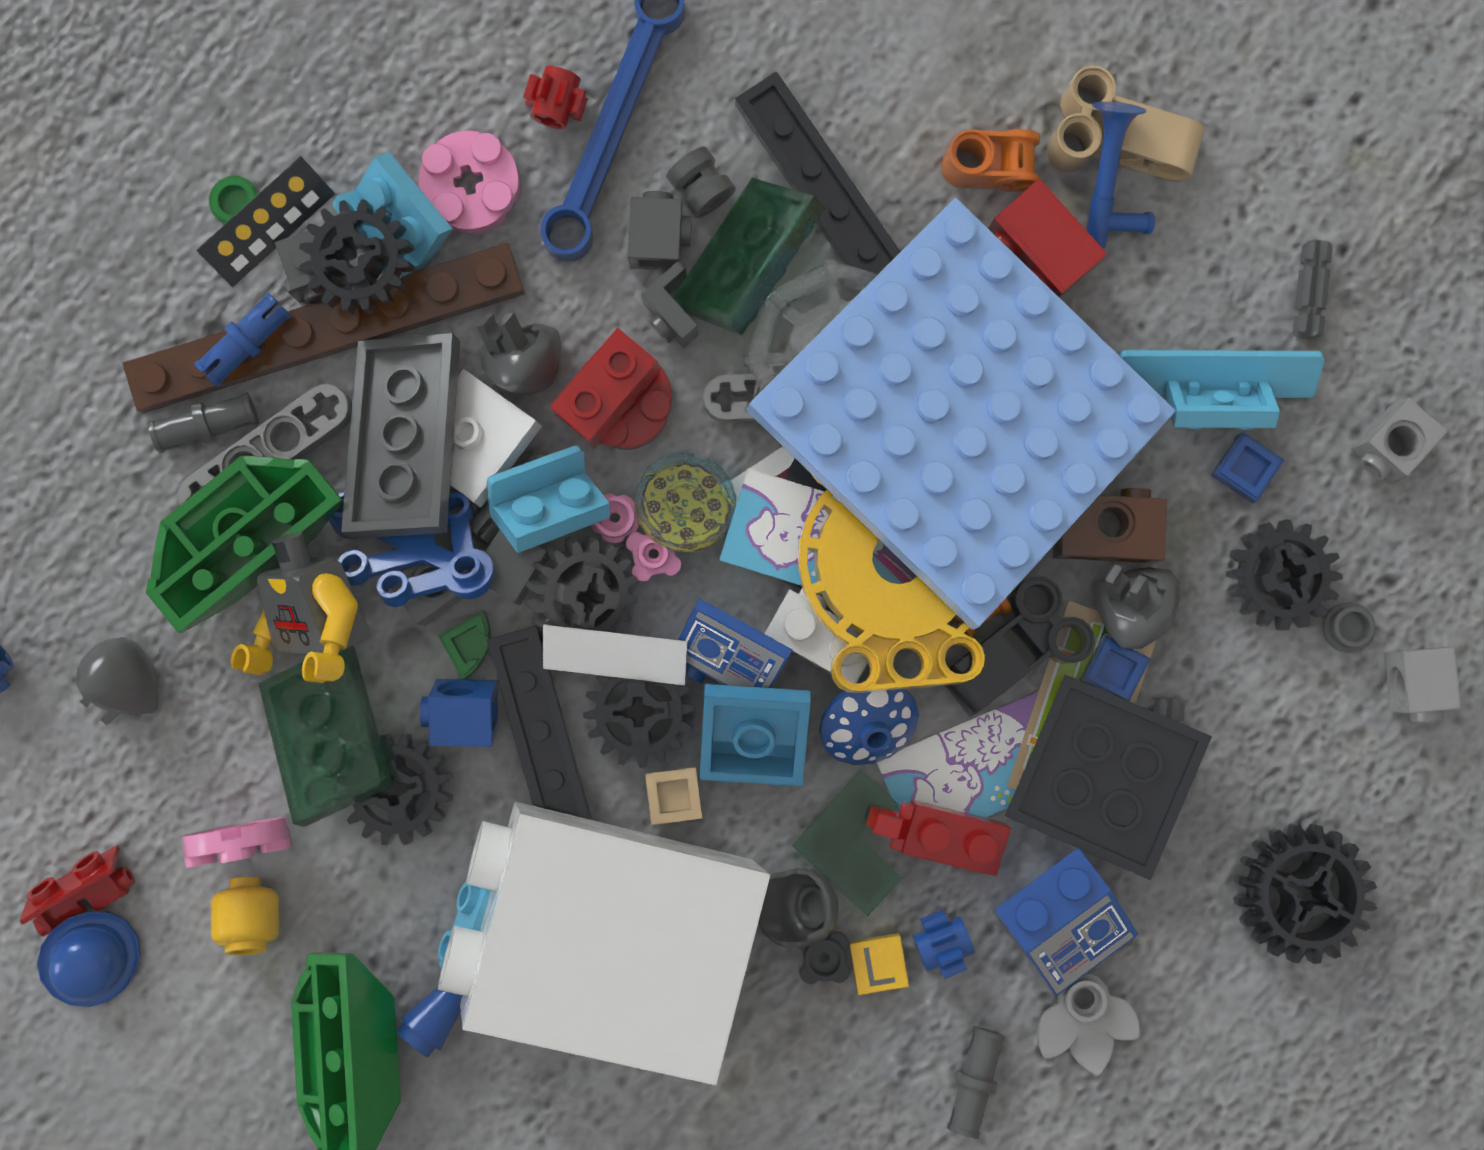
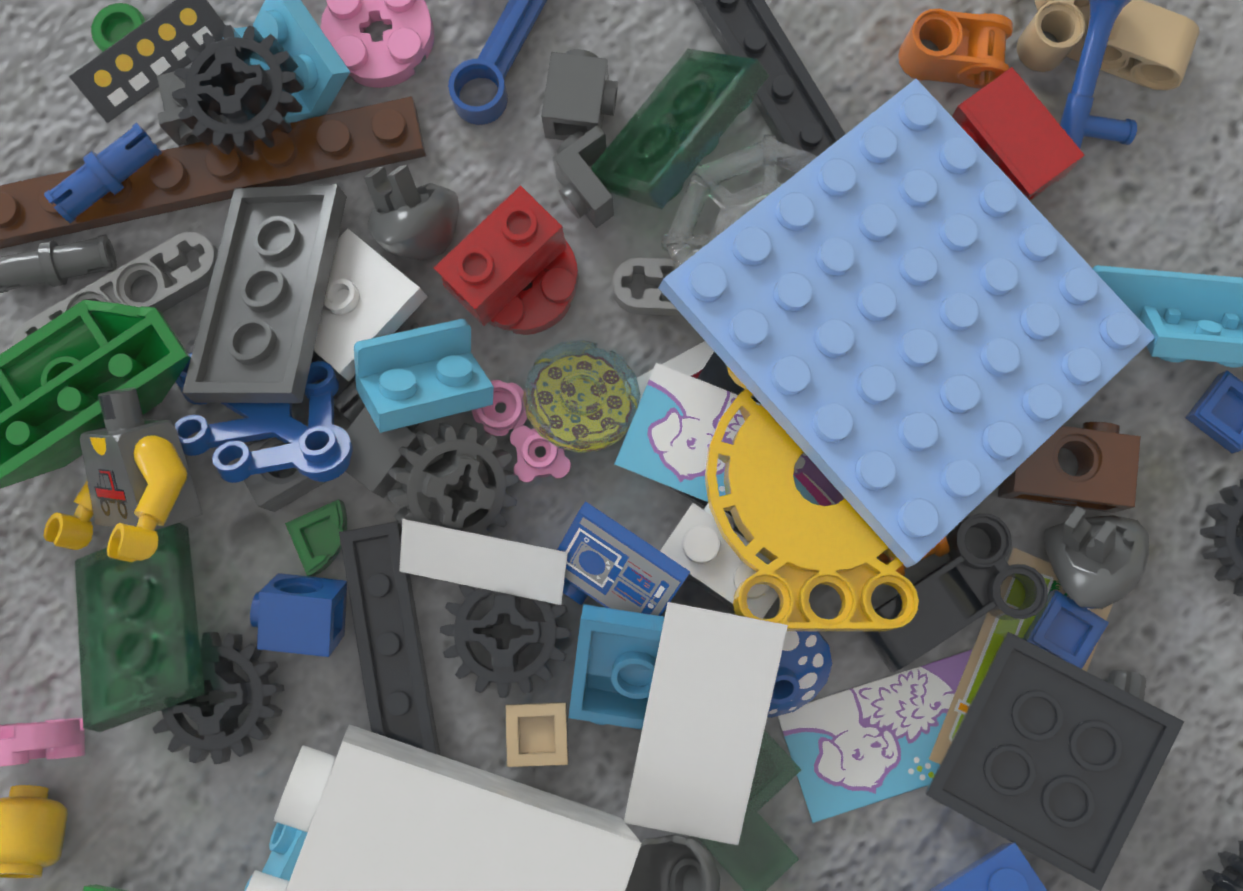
camera: 15 degrees right, 5 degrees down
(700, 182) = (631, 47): dark grey wheel -> none
(814, 773) = (704, 722): none -> white sticker
(942, 835) = (850, 811): red hinge -> none

